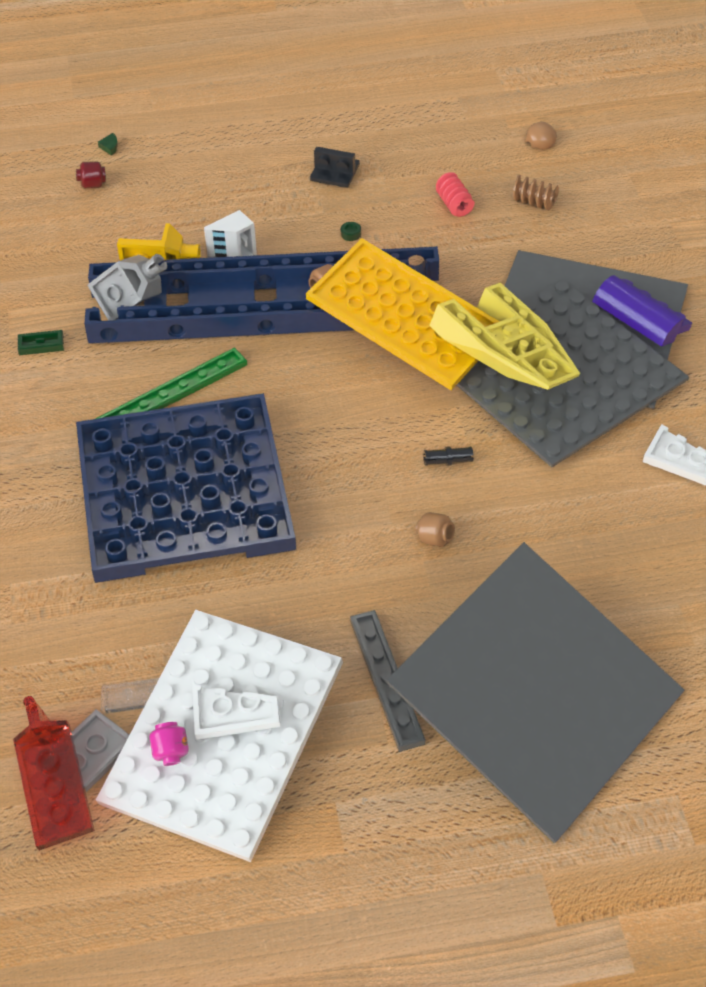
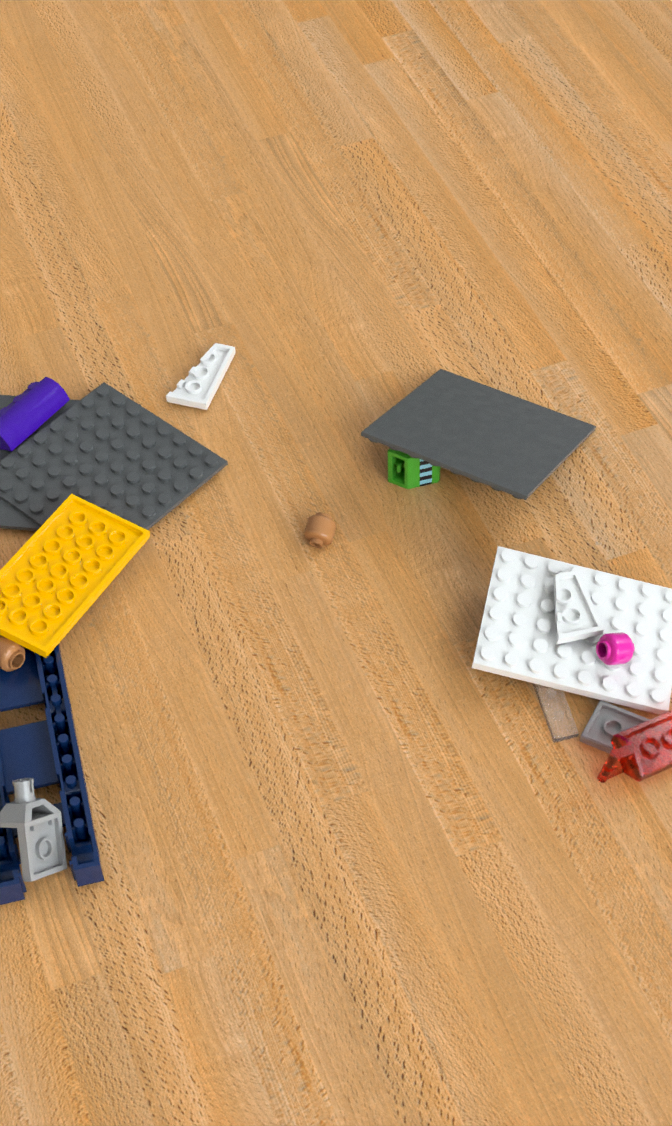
camera: 100 degrees left, 0 degrees up
(40, 342) = (112, 951): dark green tile -> none
(182, 486) = (306, 731): dark blue plate -> none
(183, 384) = (178, 787): green tile -> none
(381, 666) = (481, 545): dark grey tile -> none
(448, 456) = (226, 536): black pin -> none
(516, 346) = (106, 474): light yellow wedge -> none

